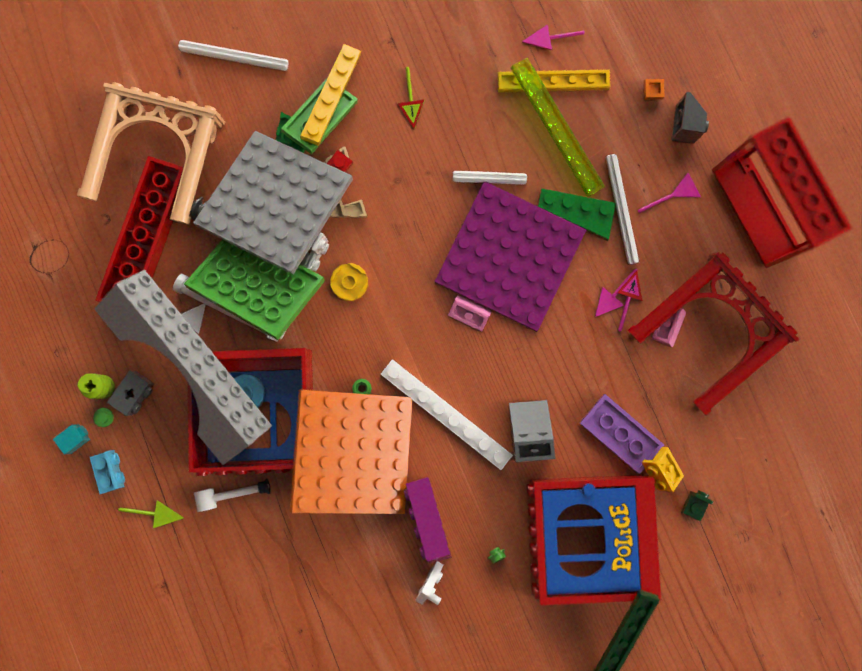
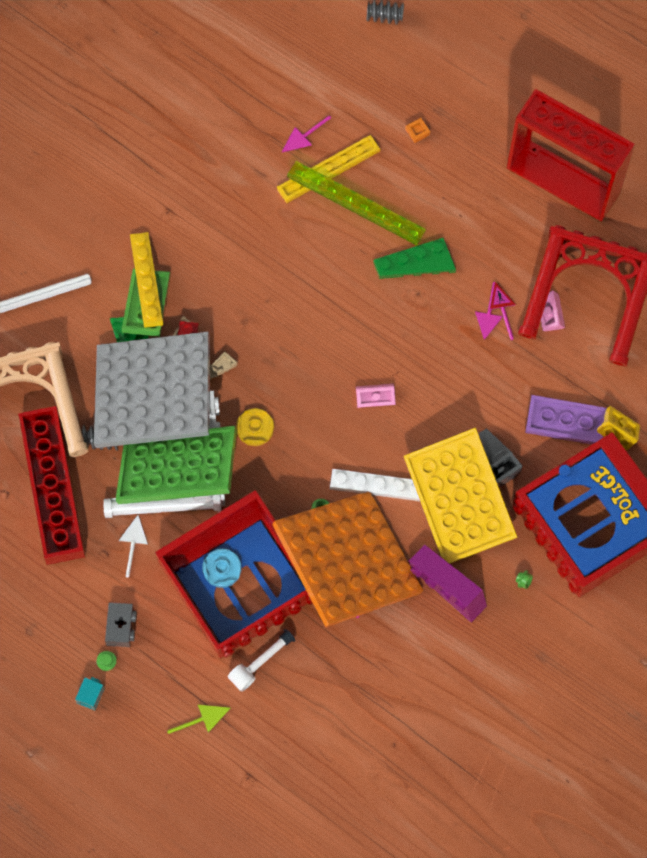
camera: 30 degrees left, 15 degrees down
(96, 386) = (87, 624): lime piece -> none
(107, 471) = (138, 705): medium azure bracket -> none
(143, 313) = (100, 533): light grey arch -> none
(412, 108) = (220, 256): piece -> none
(427, 590) = (482, 634): white plate -> none
(484, 454) = (460, 496): none -> yellow plate
(490, 177) = (323, 275): white axle -> none
(510, 256) = (381, 330): magenta plate -> none
(622, 209) = (452, 240): white axle -> none
(685, 189) = (494, 196): dark pink piece -> none
(689, 120) = (462, 138): dark grey slope -> none

